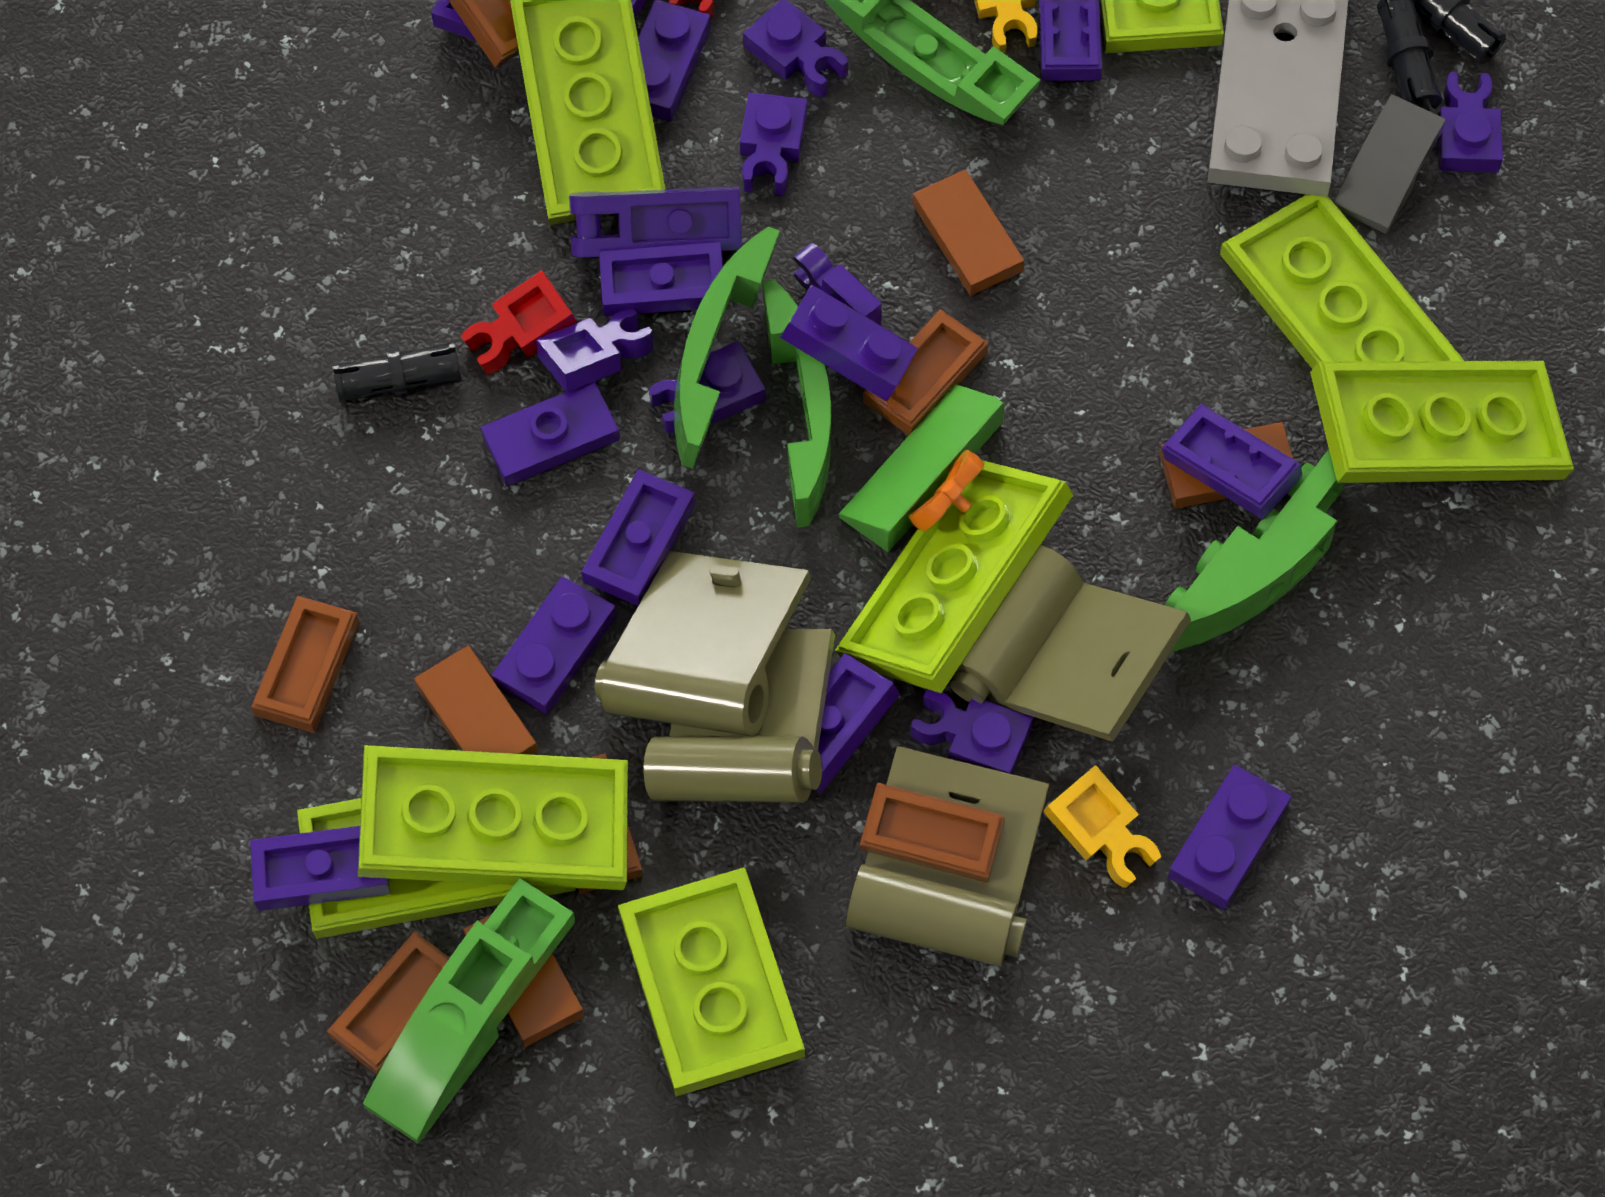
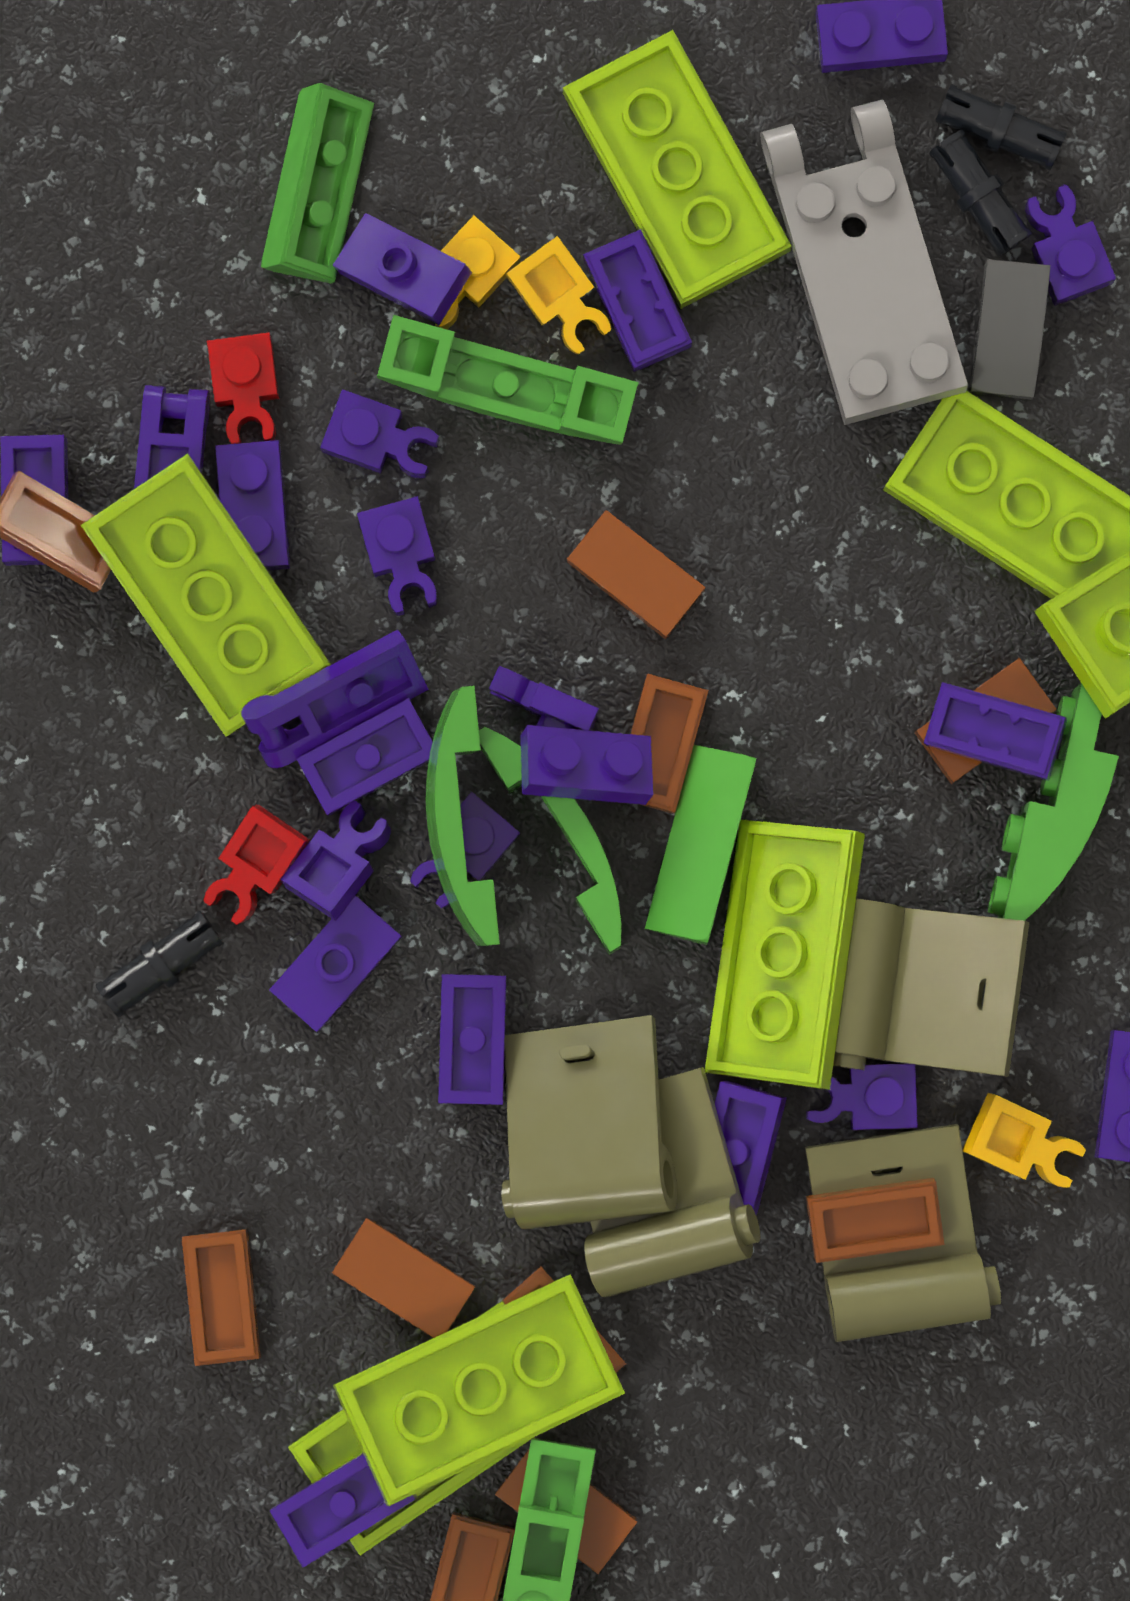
camera: 25 degrees left, 20 degrees up
(554, 645) = (442, 1178): dark purple plate -> none
(711, 981) = (738, 1445): lime plate -> none
(960, 475) = (740, 902): orange piece -> none

